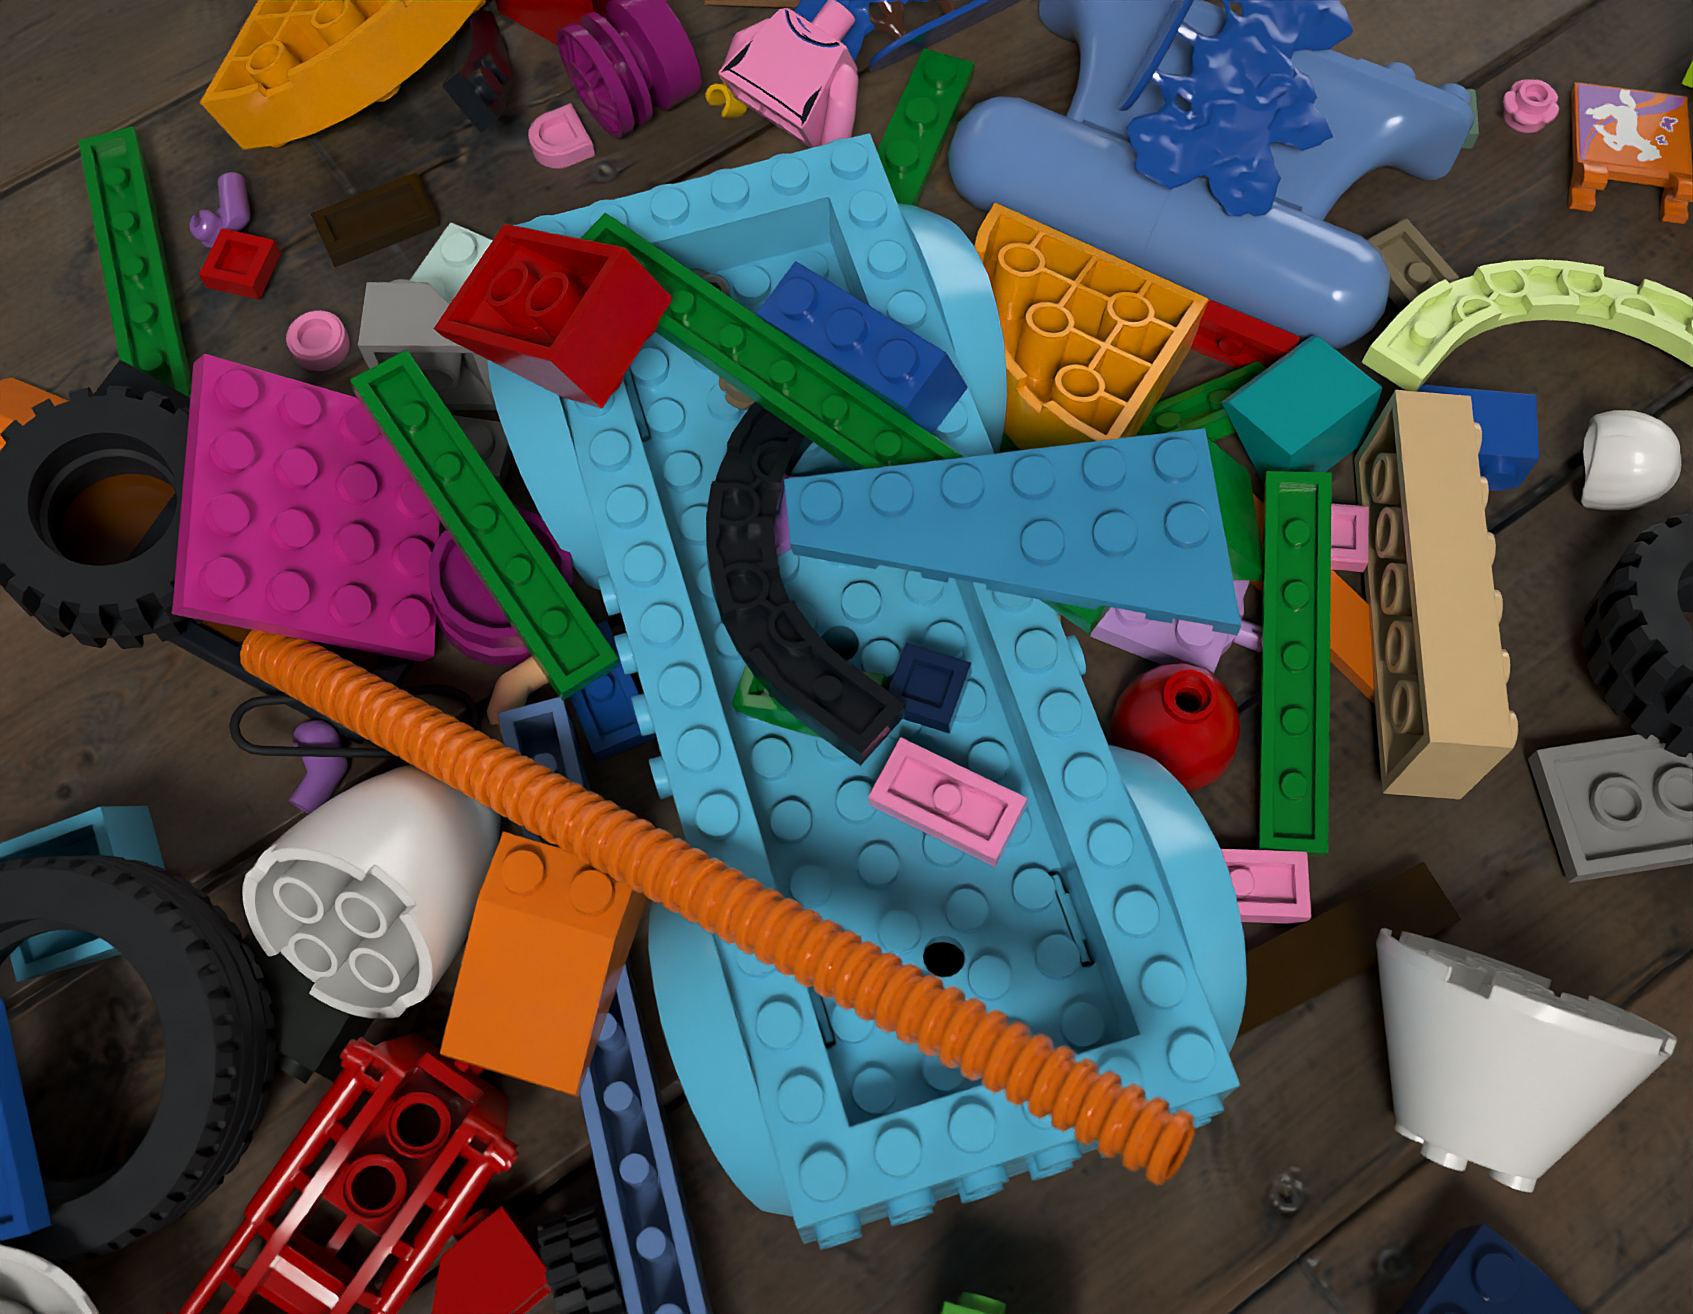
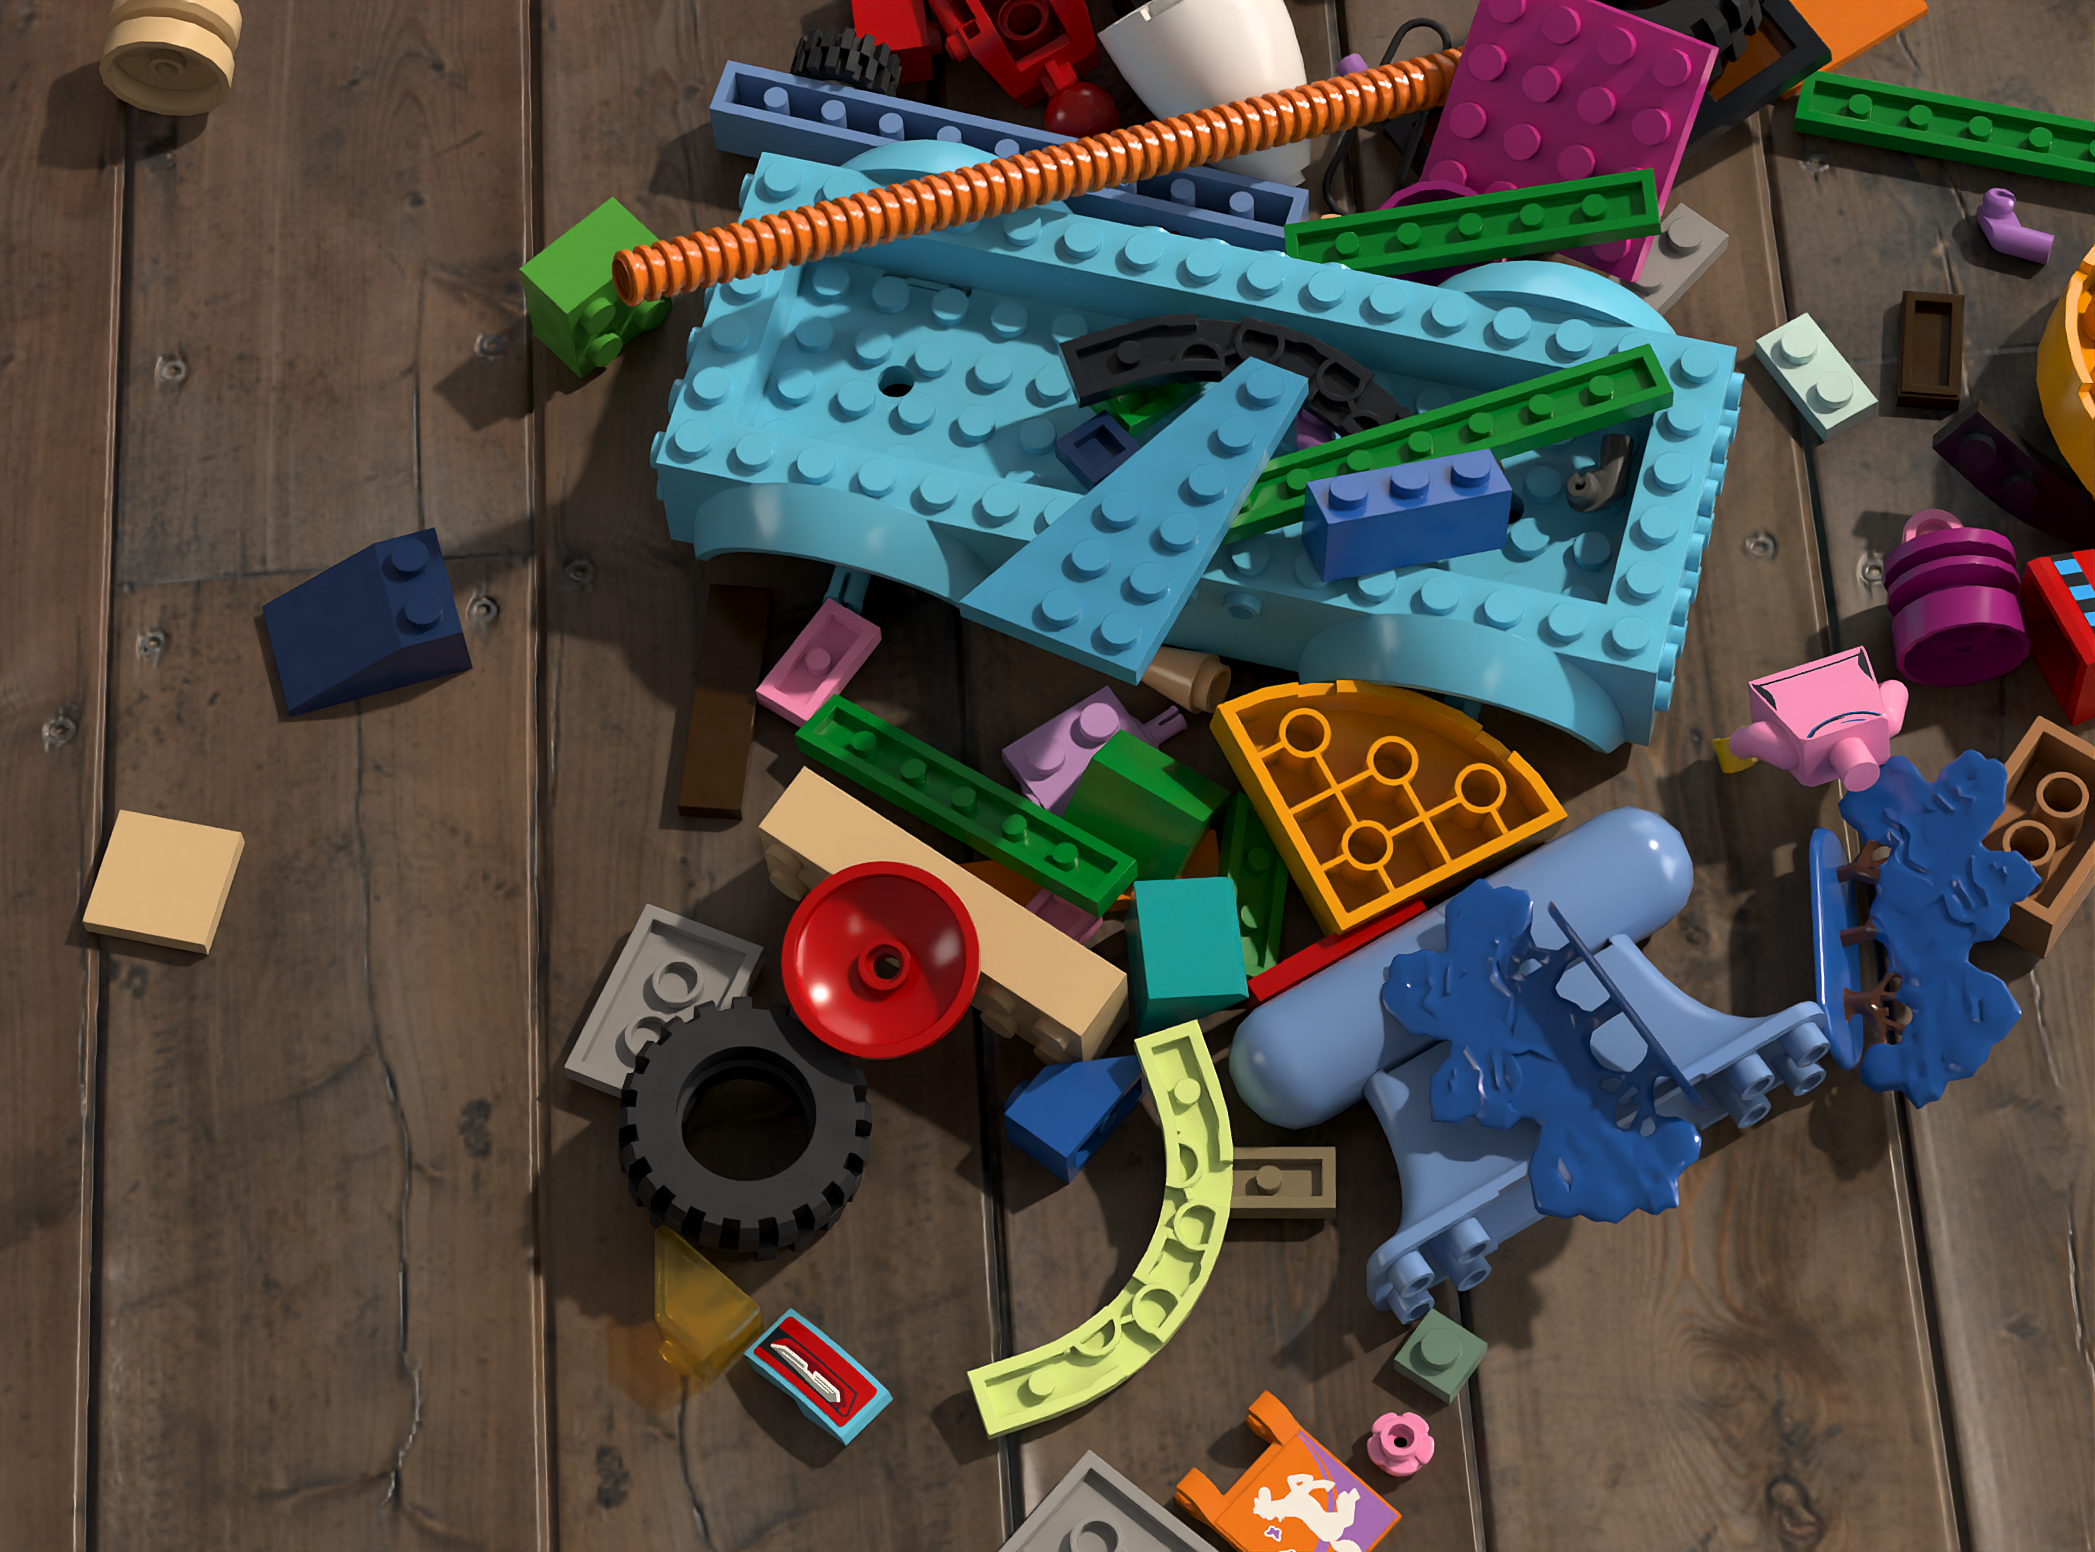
camera: 125 degrees right, 5 degrees down
(240, 263) = (1936, 216): red plate -> none
(318, 340) = (1815, 251): bright pink tile -> none
(403, 317) = (1724, 288): light grey slope -> none
(540, 965) = (1063, 98): orange slope -> none
(557, 311) = (1580, 296): red slope -> none
(923, 122) = (1723, 841): green plate -> none
(947, 801) = (999, 418): bright pink plate -> none
(1181, 721) = (977, 699): red piece -> none
(1497, 1062) = (577, 724): white cone -> none
(1559, 557) = (853, 926): none -> red dish
(1628, 460) = (961, 1209): white hair -> none

